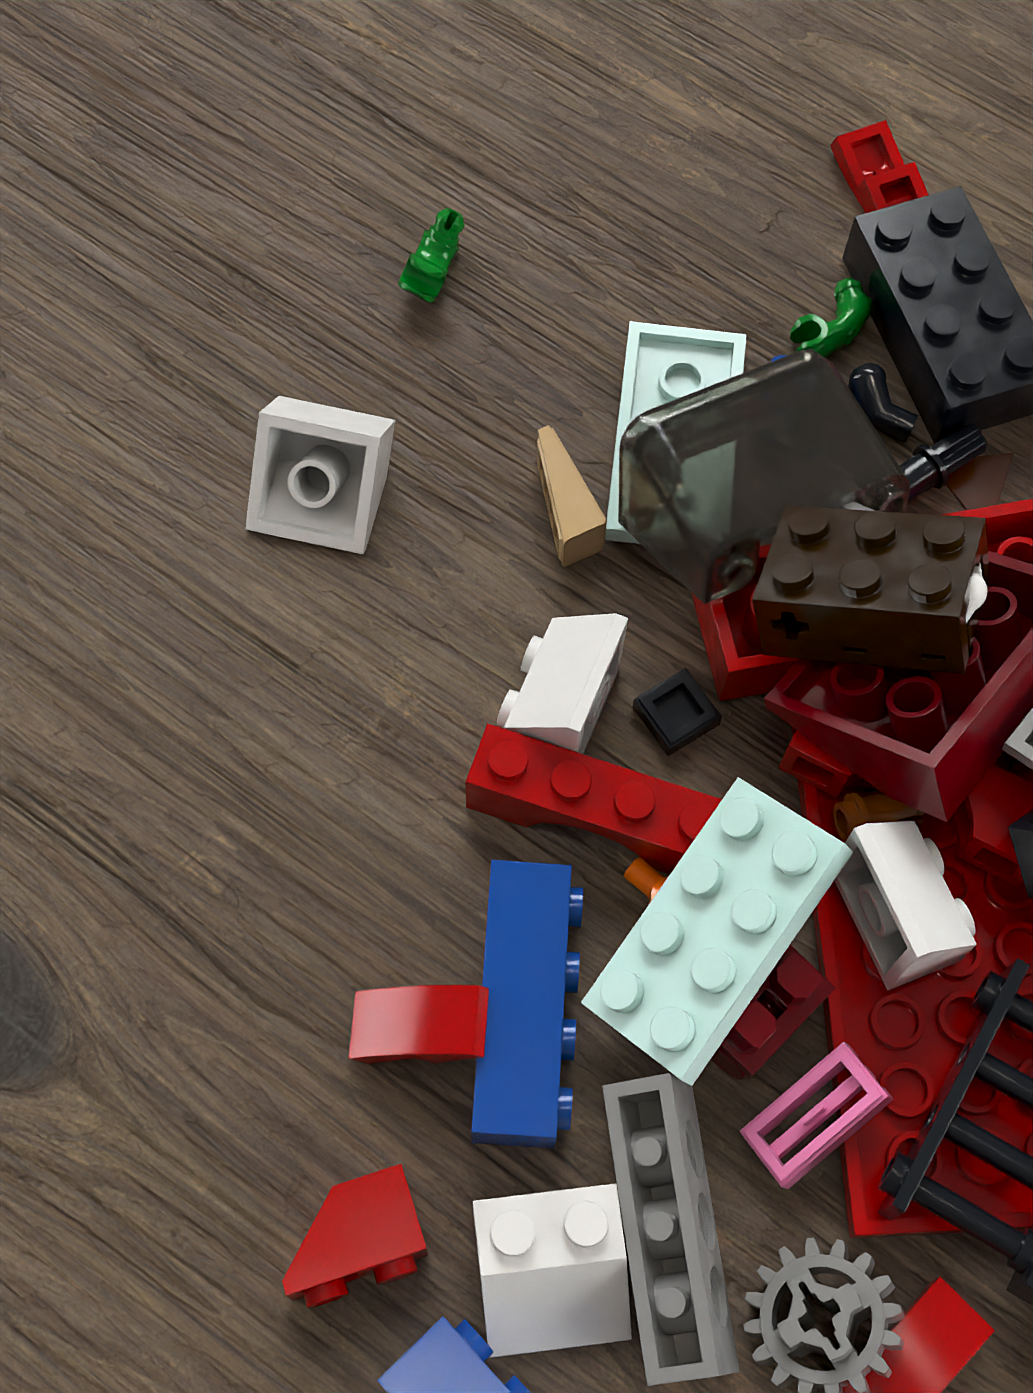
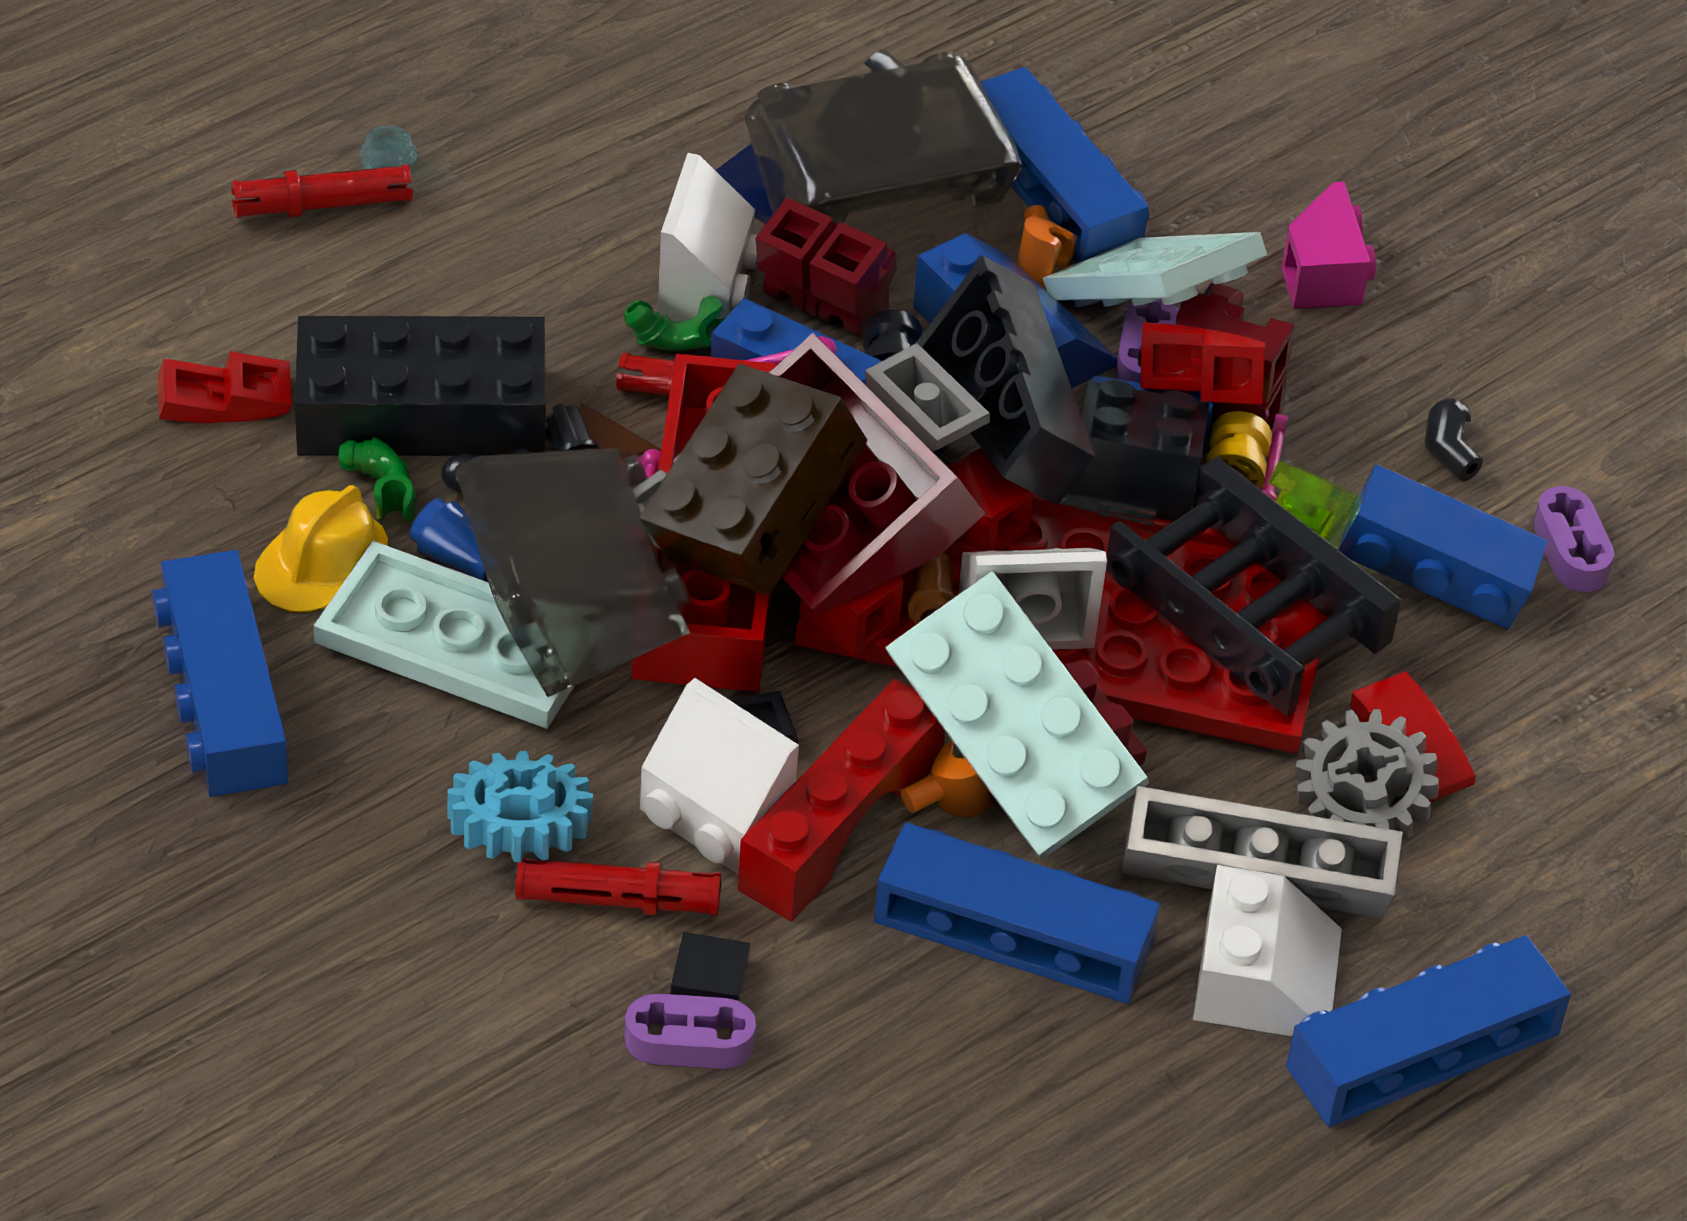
camera: 75 degrees left, 20 degrees down
(286, 757) = (690, 1031): none -> medium lavender beam
(318, 473) = (377, 927): white slope -> none
(358, 1232) = (1195, 1090): red slope -> none
(374, 752) = (710, 967): none -> black tile
(419, 1023) = (1014, 988): red slope -> none
(428, 267) = (136, 774): green piece -> none
(442, 670) = (619, 886): none -> red pin
(488, 539) = (519, 806): none -> medium azure gear
(555, 274) = (222, 672): none -> blue brick
(572, 510) = (490, 730): tan slope -> none
(734, 300) = (316, 550): none -> yellow piece
(832, 1137) = (1209, 780): bright pink tile -> none

